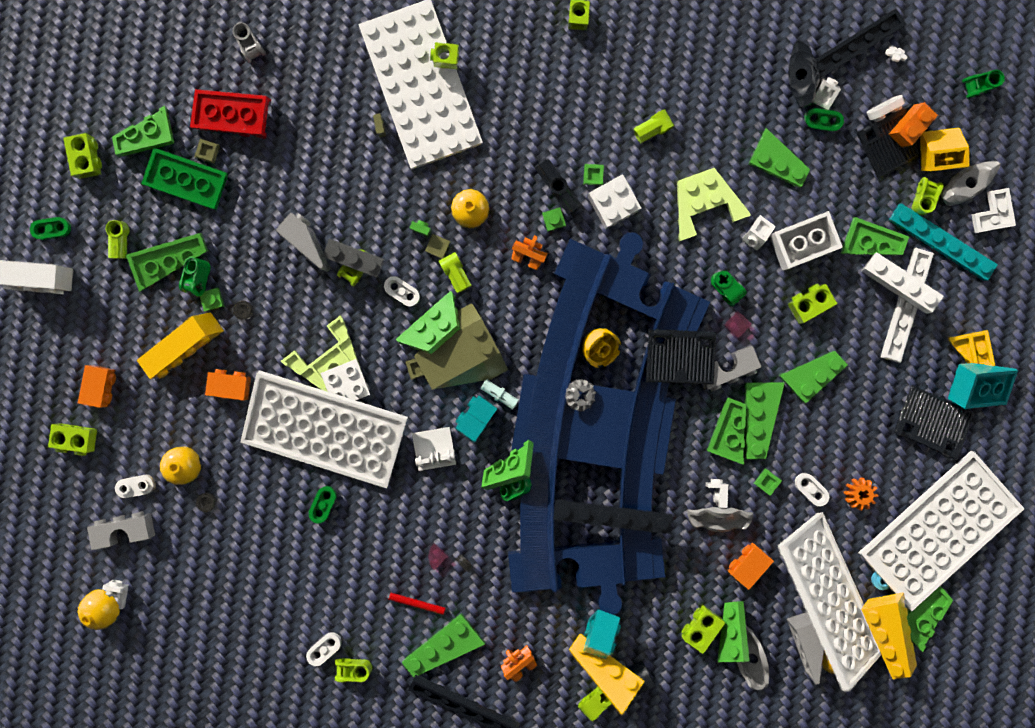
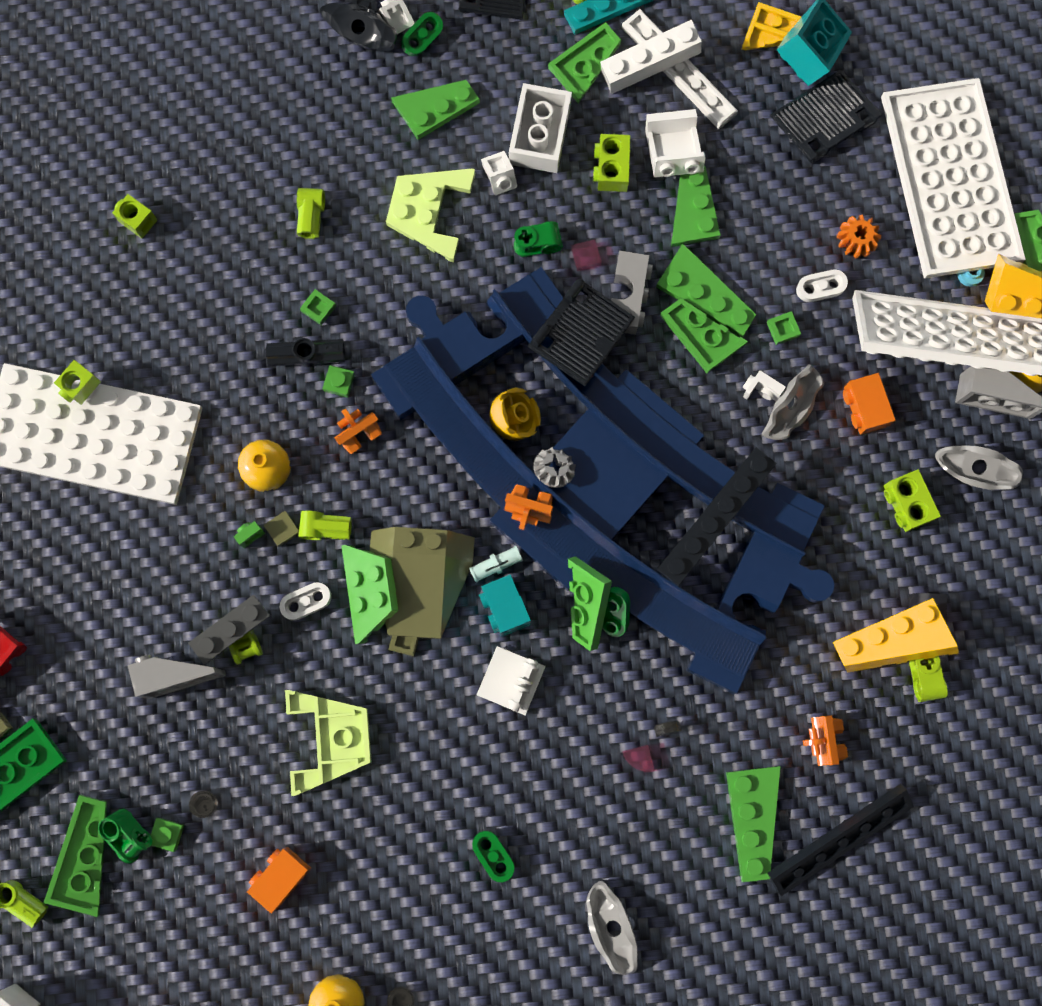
camera: 65 degrees left, 10 degrees down
(179, 345) = (192, 908): yellow wedge -> none
(315, 613) = (617, 950): none -> light grey piece
(323, 429) = (403, 796): white plate -> none
(324, 648) = (669, 968): white plate -> none
(346, 381) = (368, 735): white hinge -> none
(348, 670) = (715, 951): lime piece -> none
(379, 125) = (102, 507): olive tile -> none
(416, 603) = (682, 818): red bar -> none
(544, 385) = (528, 510): none -> orange hips
(601, 633) = (847, 616): teal brick -> none
(614, 202) = (362, 302): white brick -> none
(733, 637) = (939, 469): bright green wing -> none
(850, 335) = (674, 143): none -> white panel

